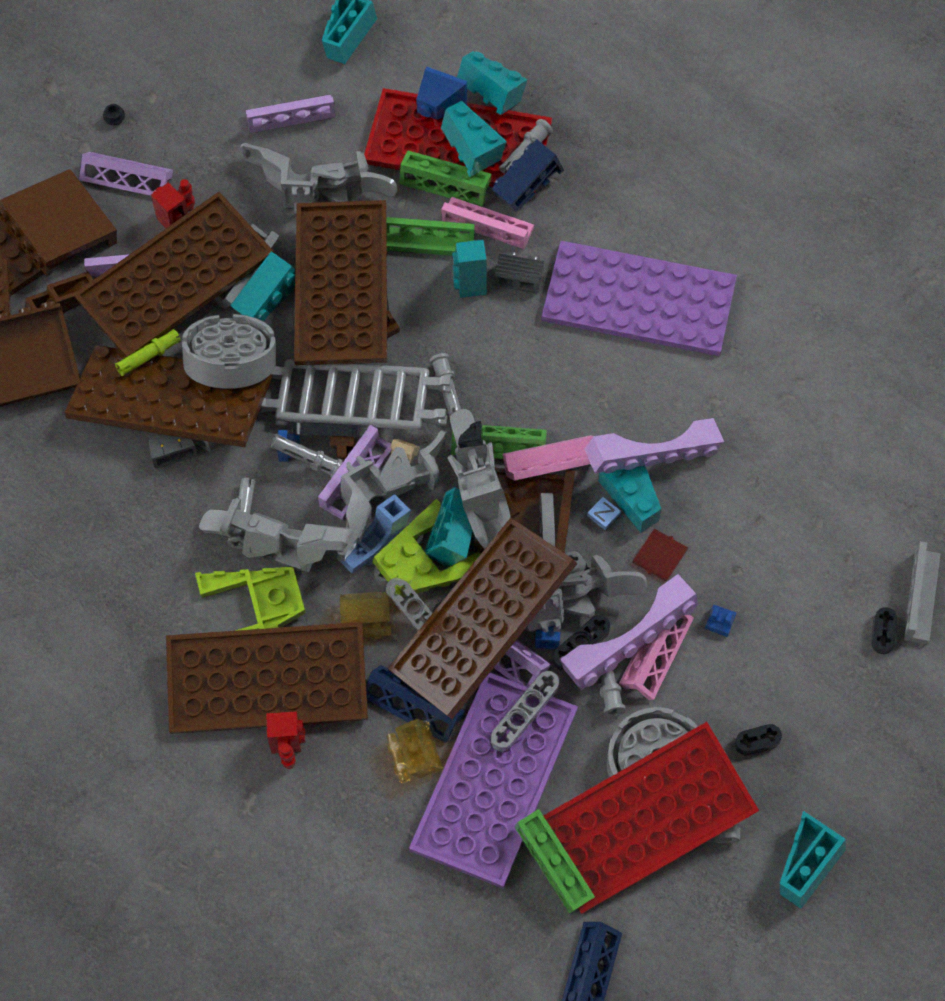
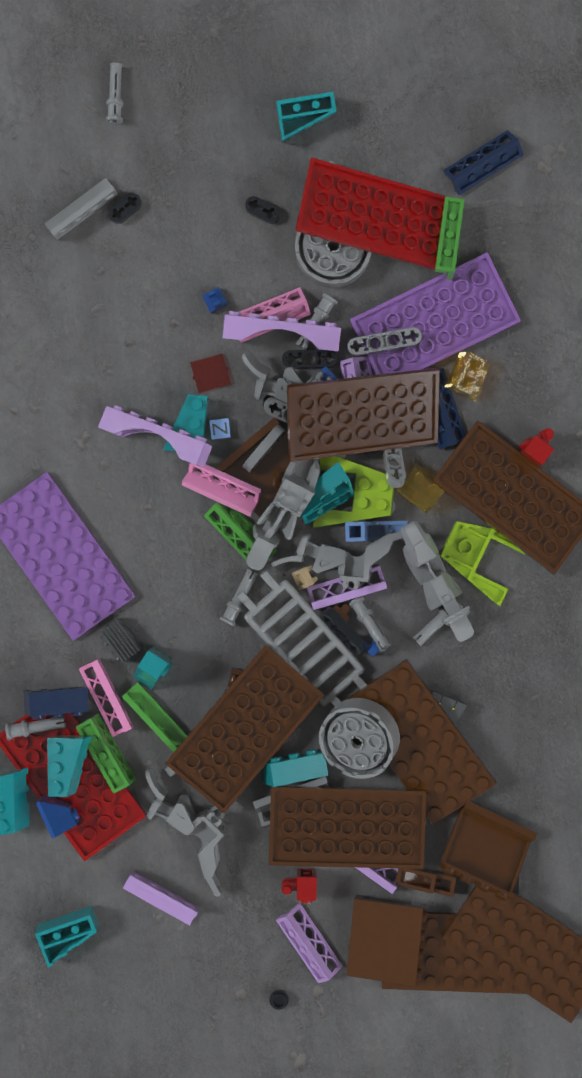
camera: 140 degrees left, 25 degrees up
(155, 348) = (409, 783): lime pin -> none
(472, 436) = (261, 541): black tile -> none

